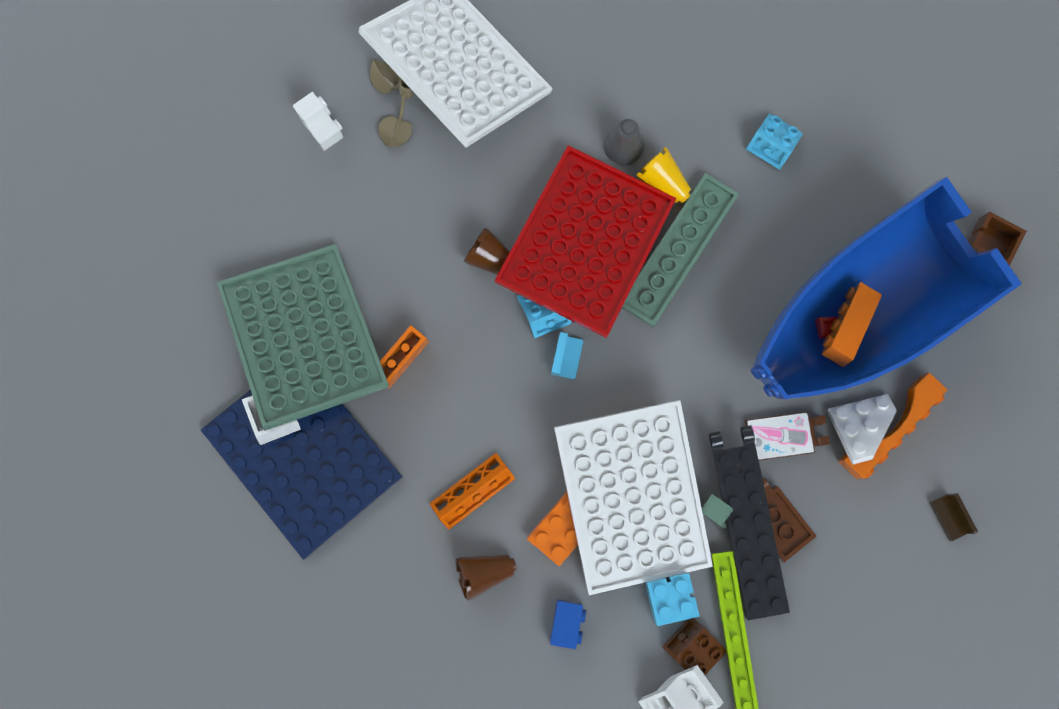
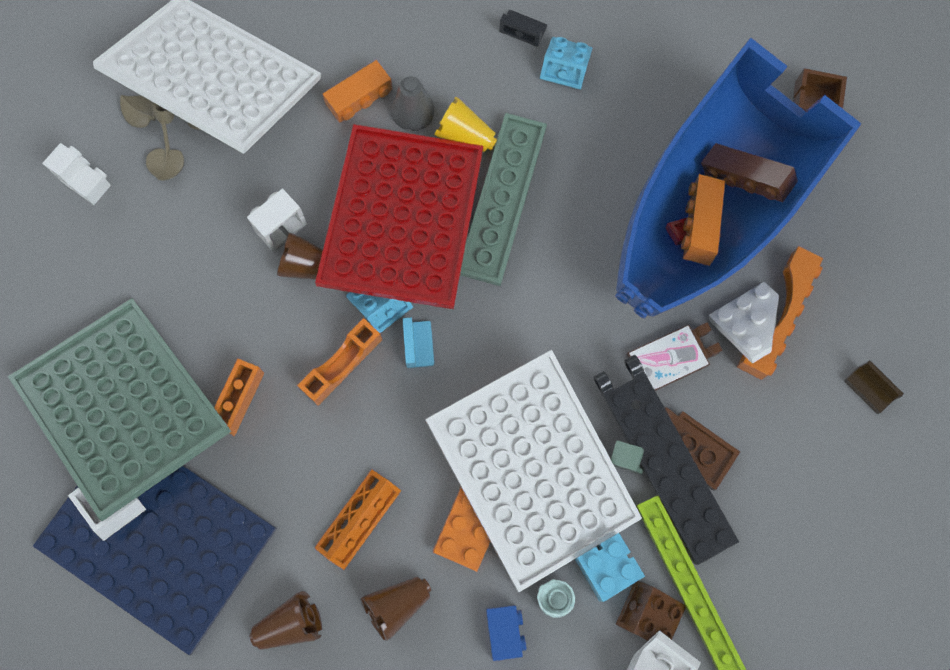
camera: 20 degrees left, 5 degrees down
(390, 560) = (288, 624): none -> reddish brown cone
(475, 208) = (276, 211): none -> white piece
(484, 361) = (354, 350): none -> orange arch
(580, 115) = (358, 91): none -> orange brick
(618, 610) = (556, 598): none -> light aqua hair
(745, 97) = (522, 27): none -> black panel
(906, 294) = (750, 172): none -> reddish brown brick

